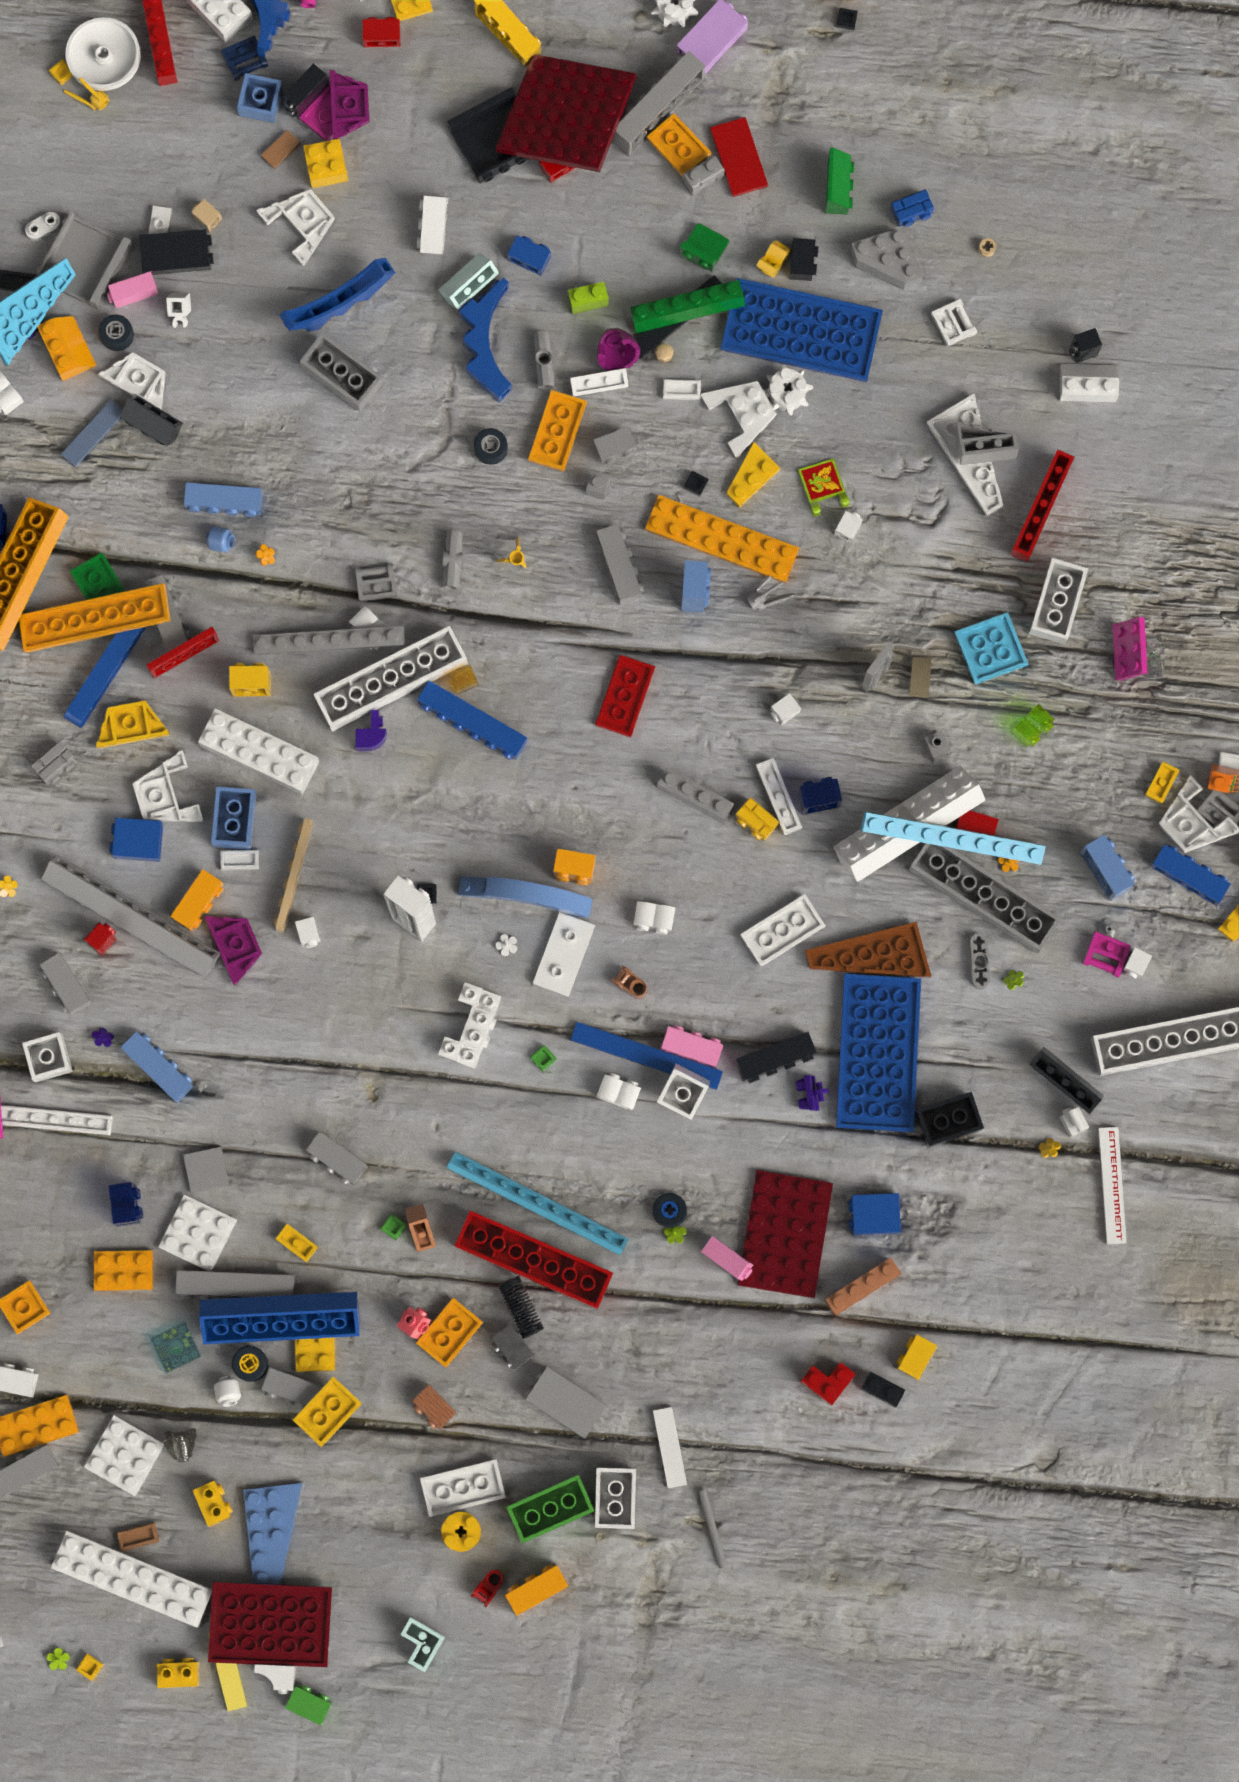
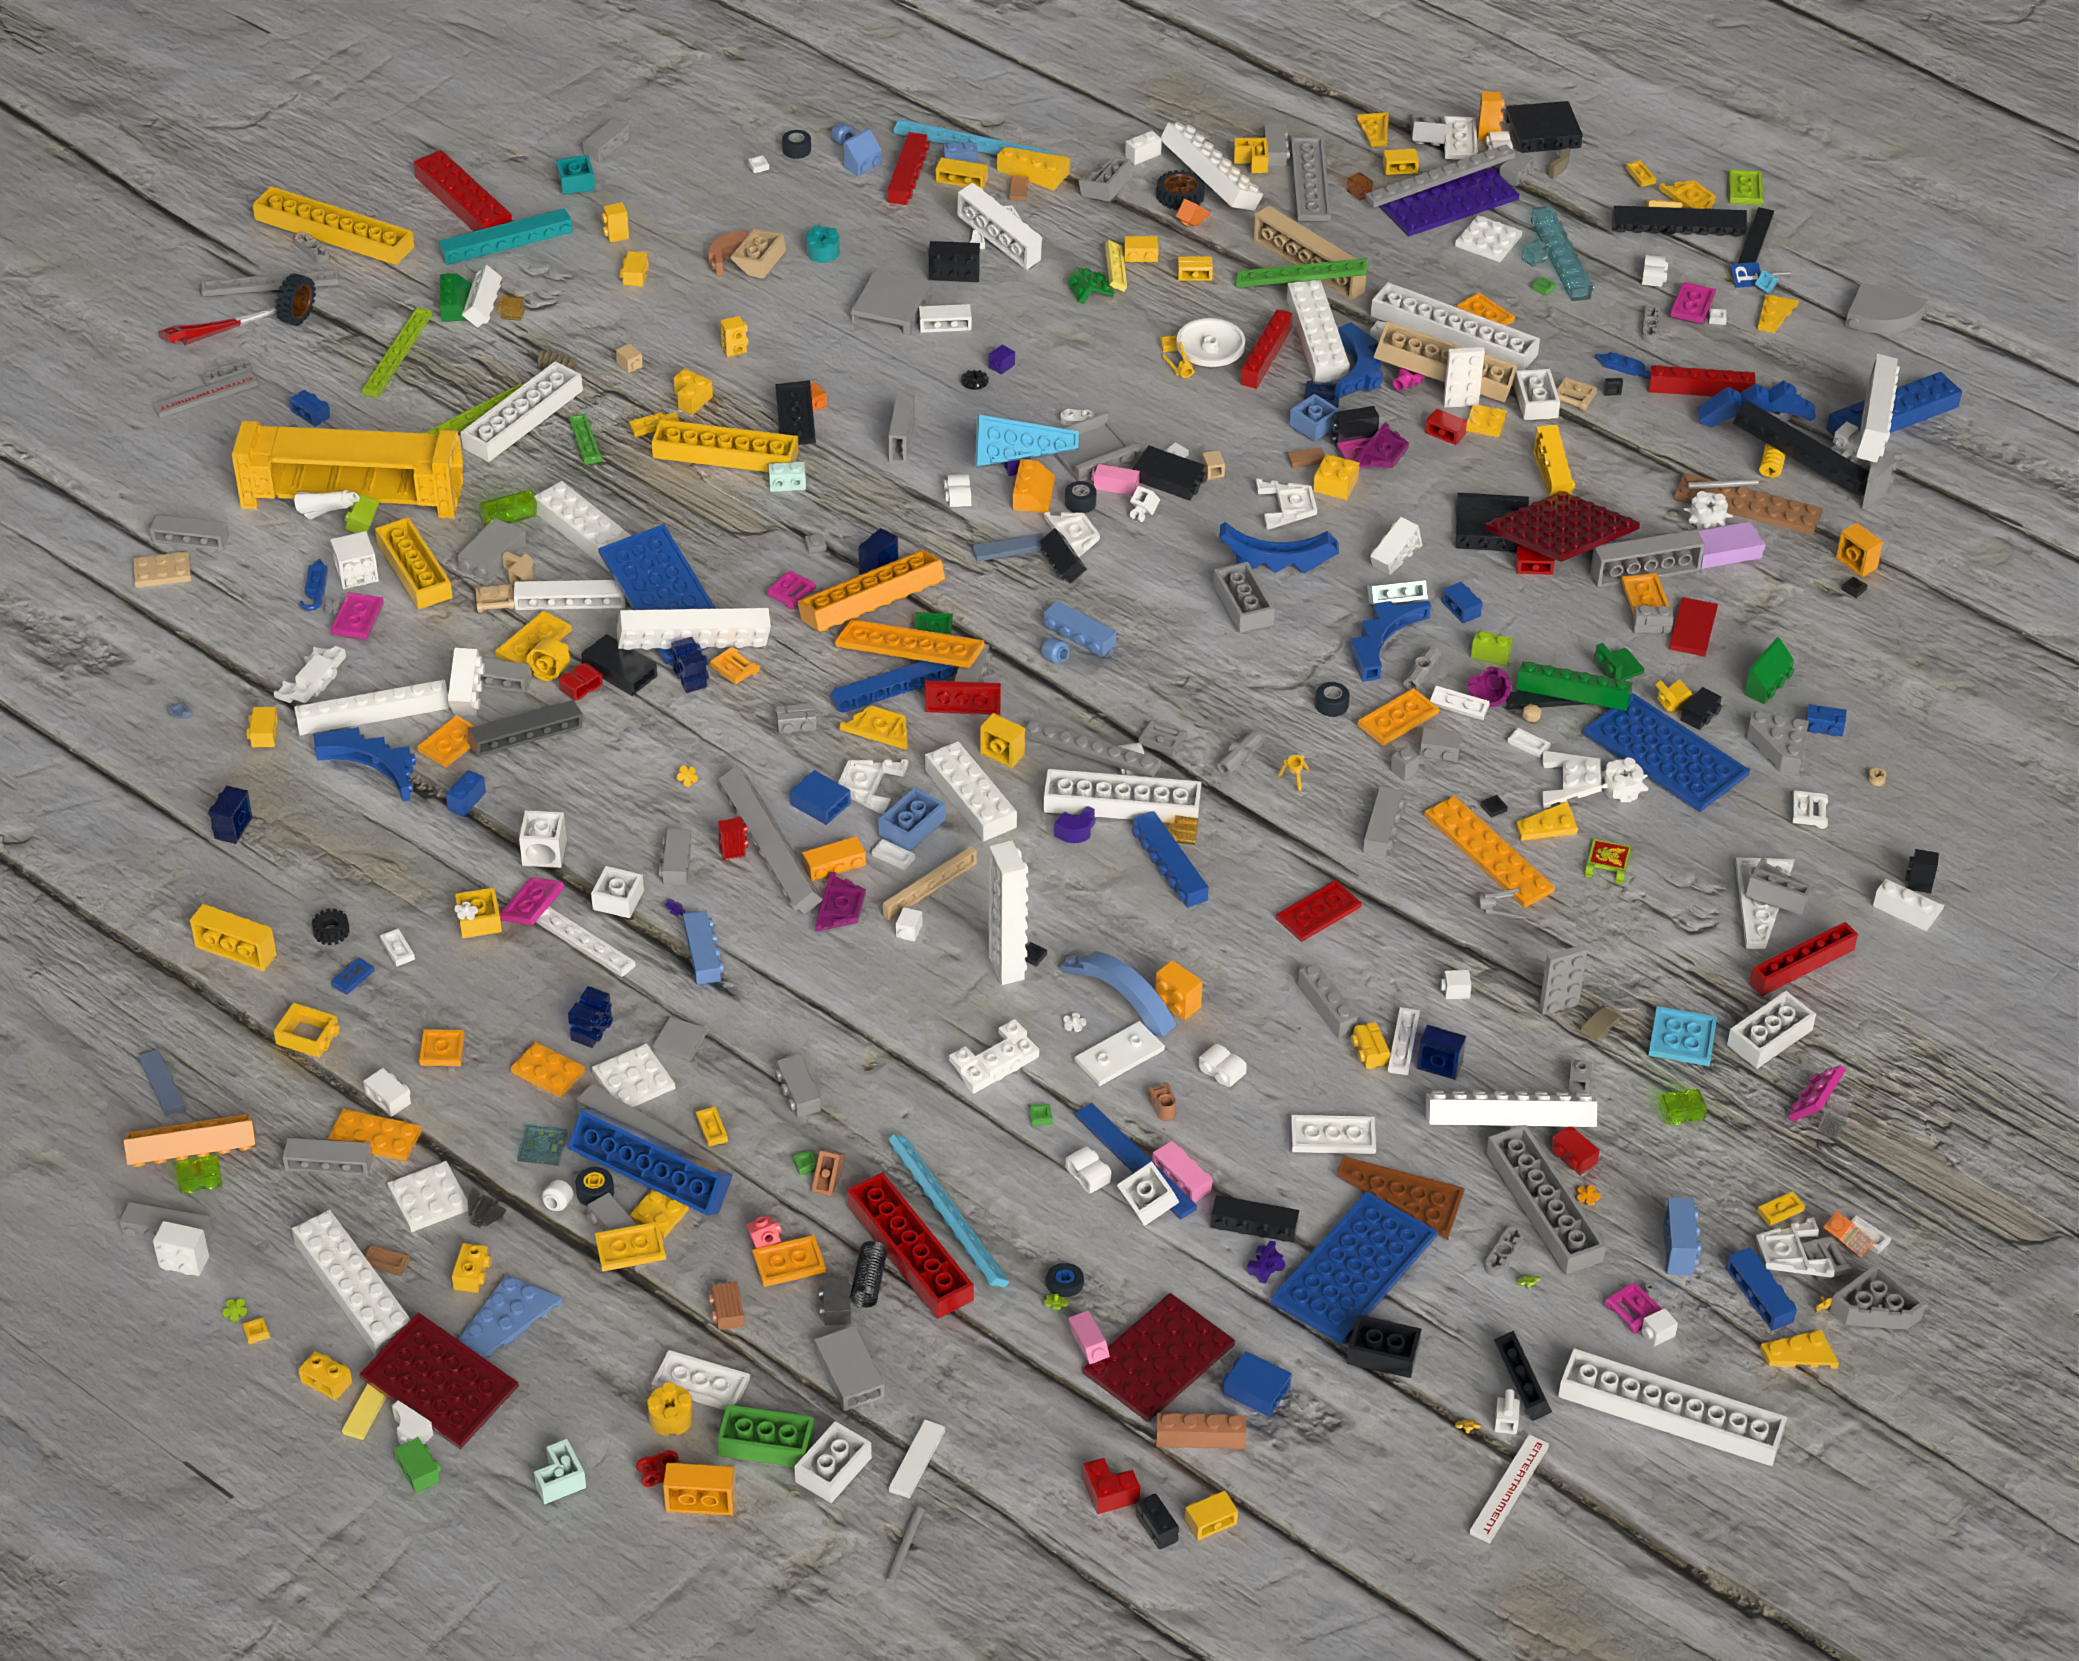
camera: 35 degrees right, 35 degrees down
(265, 554) = (1083, 678): light orange plant -> none
(695, 586) = (1437, 855): medium blue brick -> none
(848, 526) = (1610, 892): white brick -> none
(952, 838) = (1545, 1133): medium azure plate -> none

